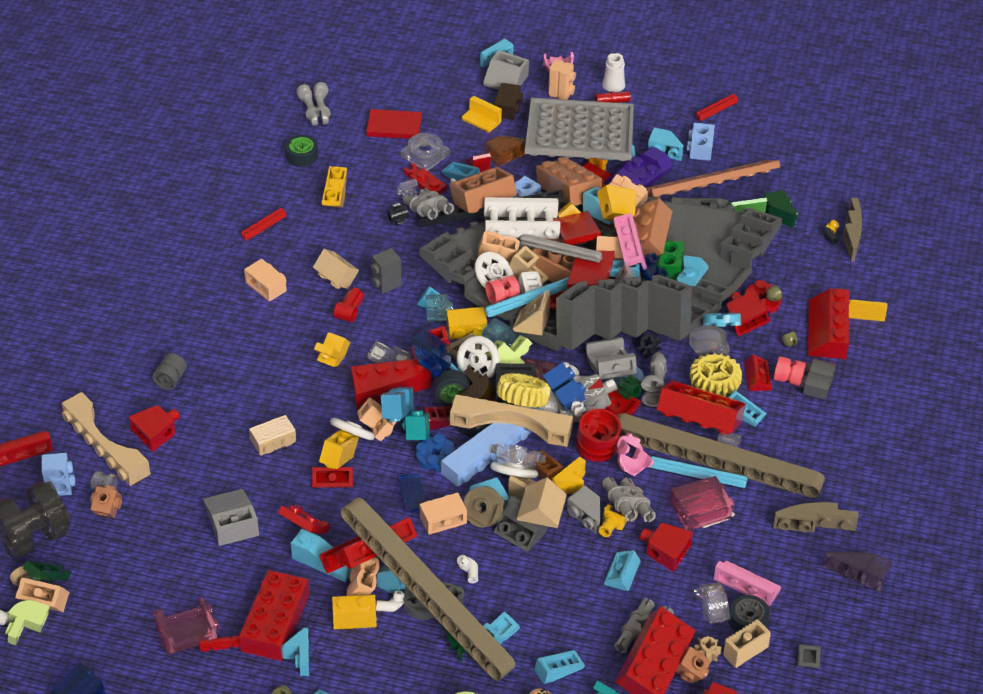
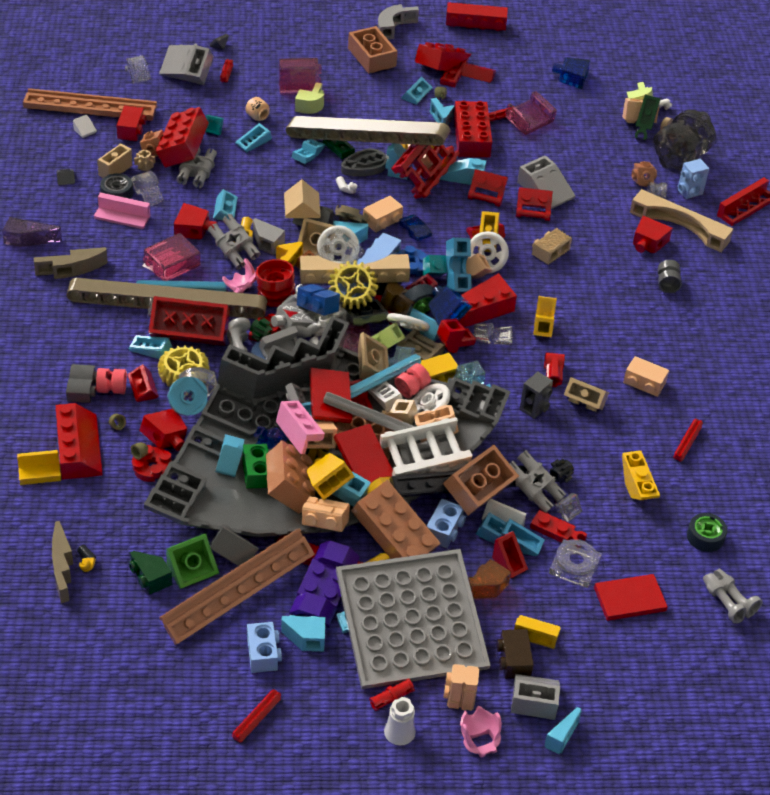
camera: 160 degrees right, 0 degrees up
(261, 490) = (534, 198): none -> red plate

